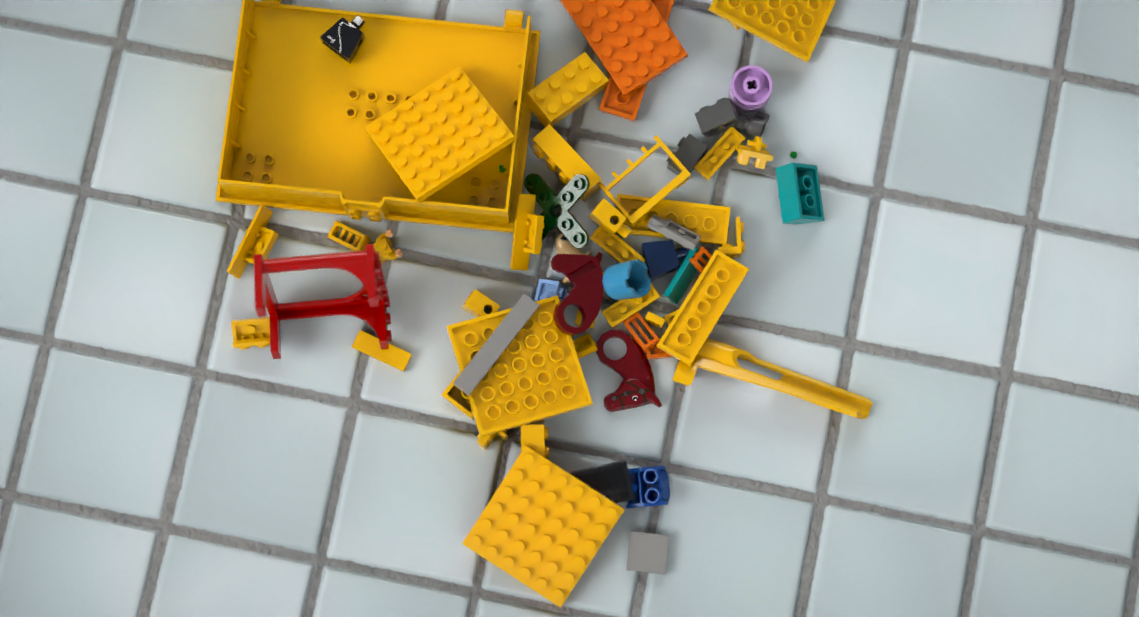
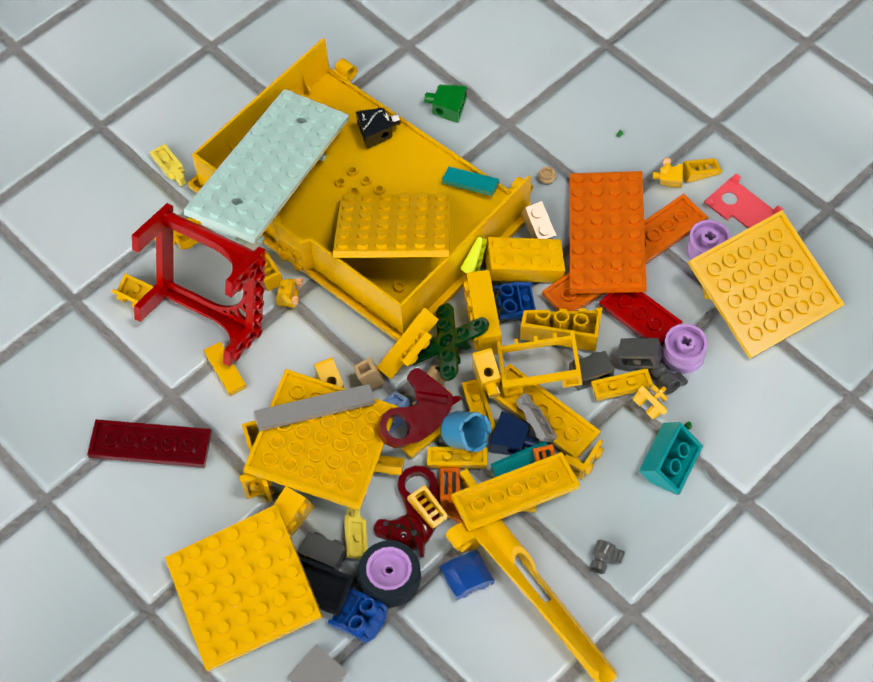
camera: 35 degrees right, 20 degrees down
(181, 190) = (169, 164): none -> light yellow hinge
(300, 153) = (266, 168): none -> light aqua piece
(371, 457) = (150, 443): none -> dark red plate
(466, 40) = (470, 181): none -> teal tile
(510, 280) = (368, 373): none -> tan brick
(528, 122) = (475, 256): none -> neon yellow slope
(554, 46) = (538, 221): none -> brick
(581, 455) = (322, 550): none -> dark grey brick
(583, 132) = (513, 299): none -> blue slope
(598, 424) = (355, 534): none -> light yellow hinge
(629, 367) = (423, 511): none -> yellow slope
(640, 132) = (545, 323): none -> yellow wedge
(643, 452) = (389, 573): none -> wheel
(696, 79) = (640, 314): none -> red plate
(705, 397) = (466, 574): none -> blue slope
(800, 310) = (603, 553): none -> dark grey piece

